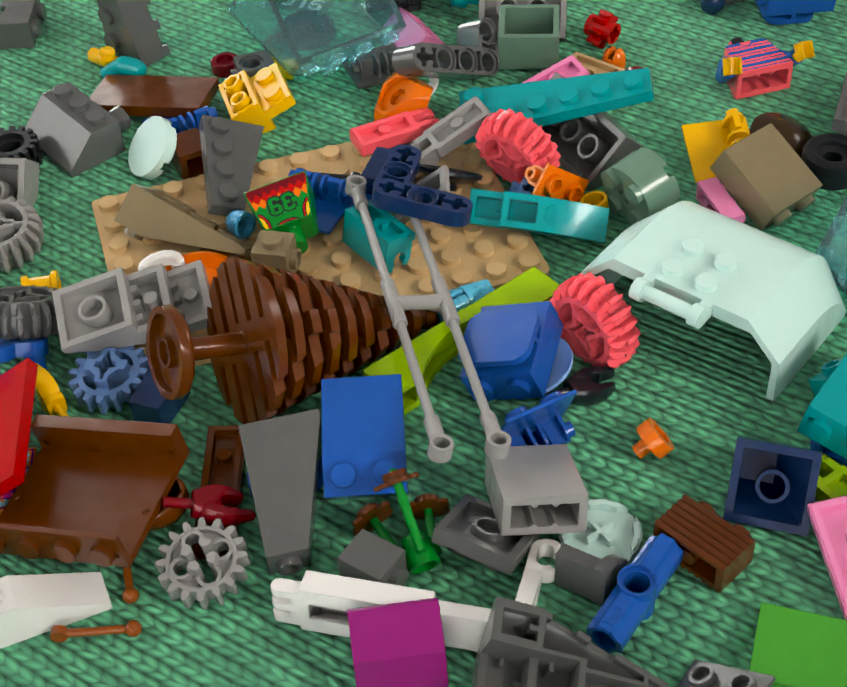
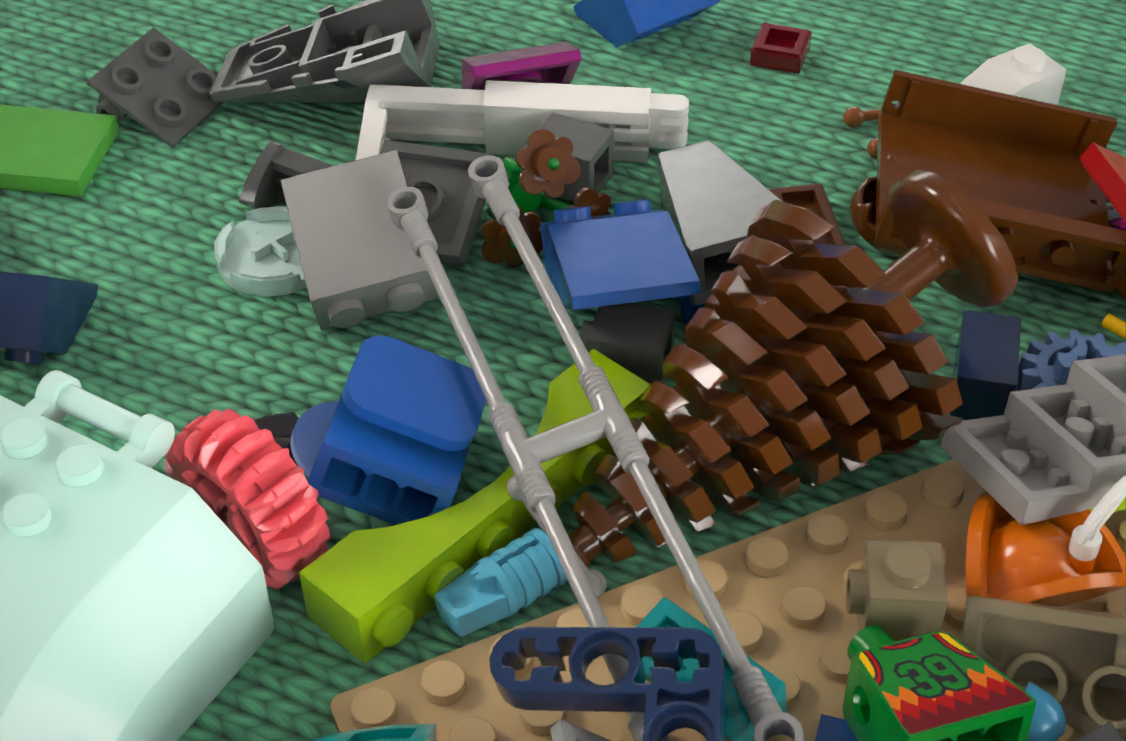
camera: 170 degrees right, 0 degrees up
(181, 556) = (797, 157): light grey gear -> none
(210, 502) = (823, 193): dark red hand -> none
(541, 423) = (347, 310): blue hinge -> none
(625, 609) = (227, 165): blue piece -> none
(652, 440) = (175, 356): orange tile -> none
(710, 544) = (132, 230): reddish brown brick -> none

